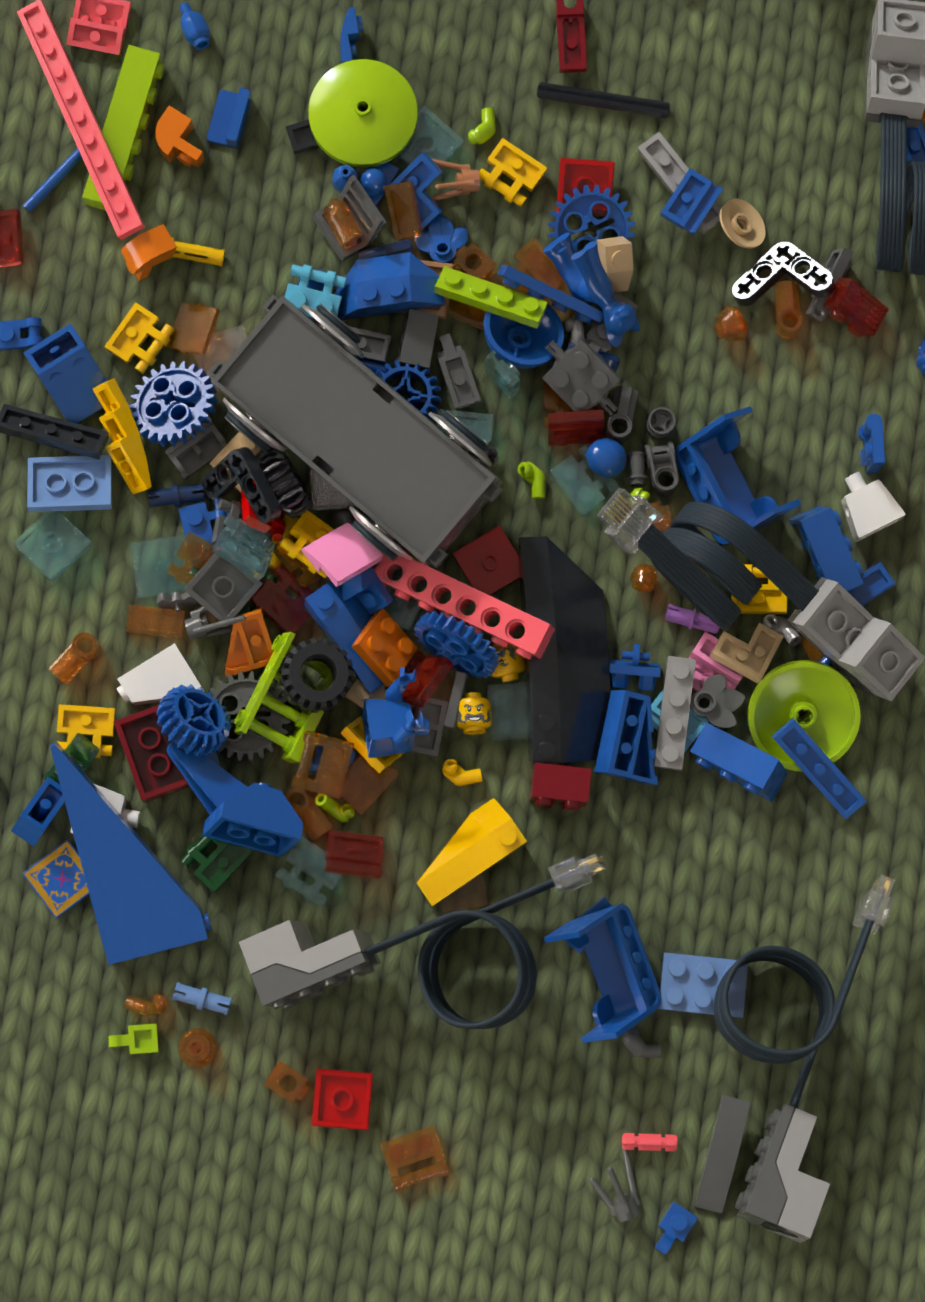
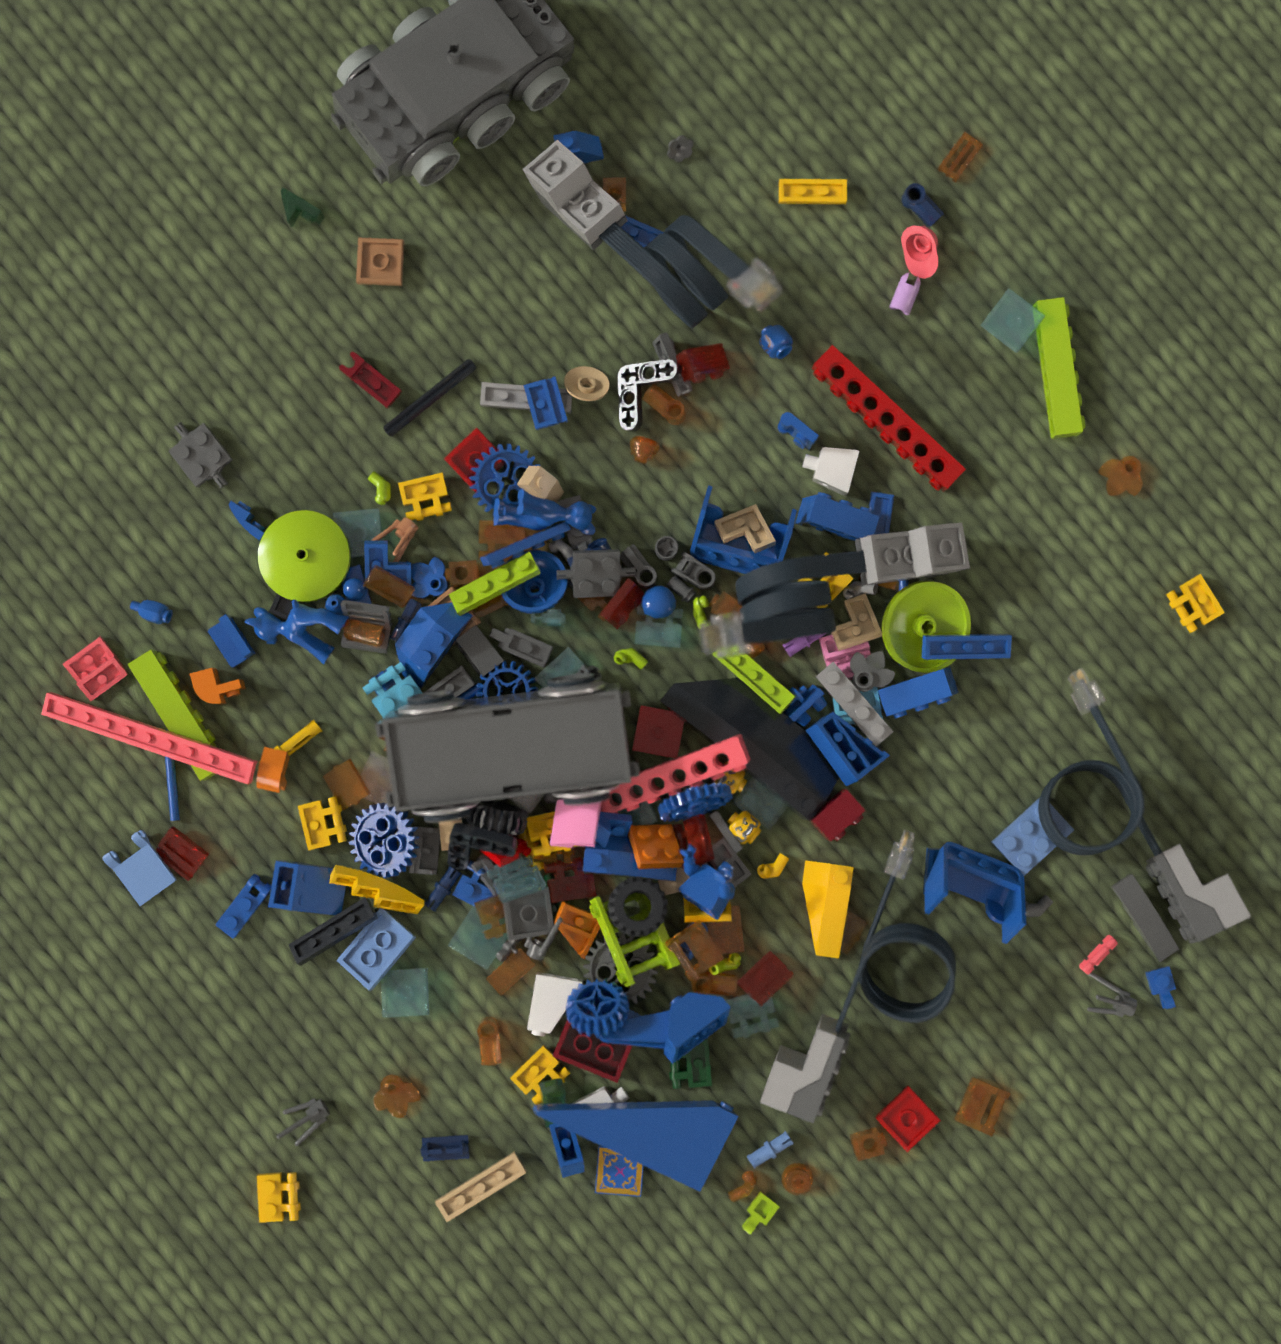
camera: 40 degrees left, 5 degrees up
(272, 138) = (294, 628): none -> blue animal
(618, 601) = (759, 680): none -> lime plate
(749, 473) = (747, 523): none -> tan plate

